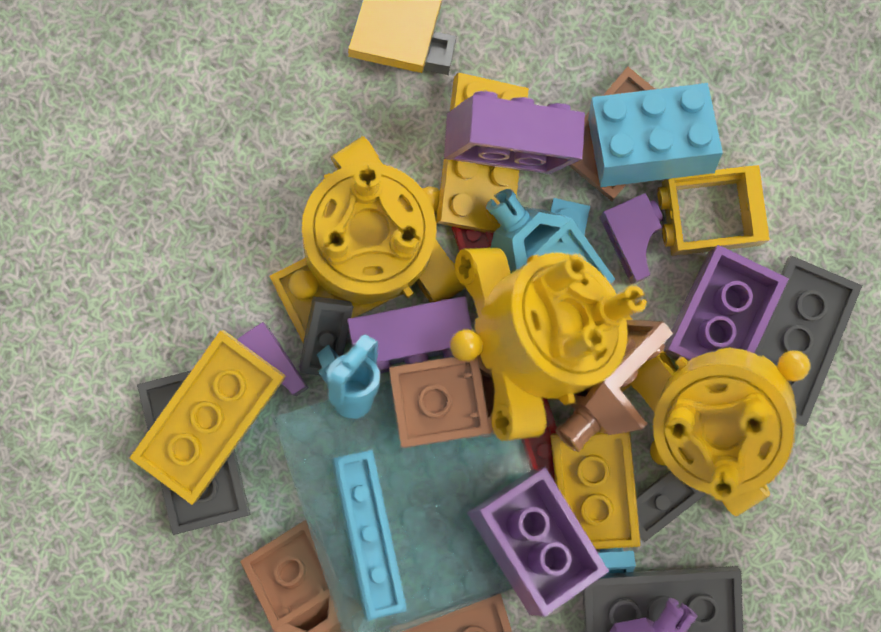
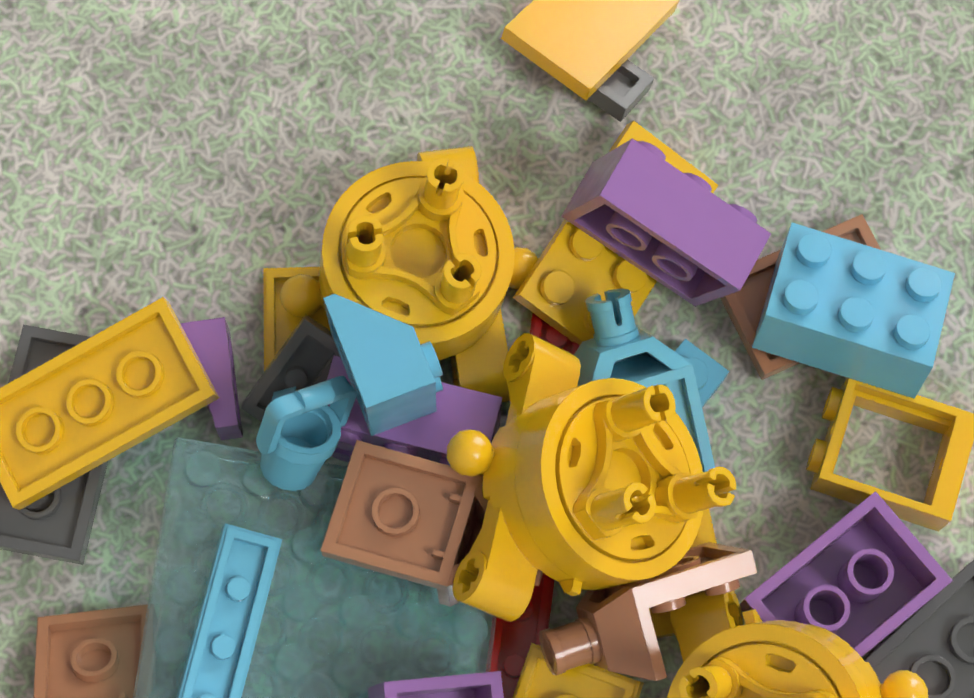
camera: 25 degrees right, 10 degrees down
(386, 315) = (384, 364): none -> medium azure slope
(630, 230) = (769, 424): medium lavender arch -> none

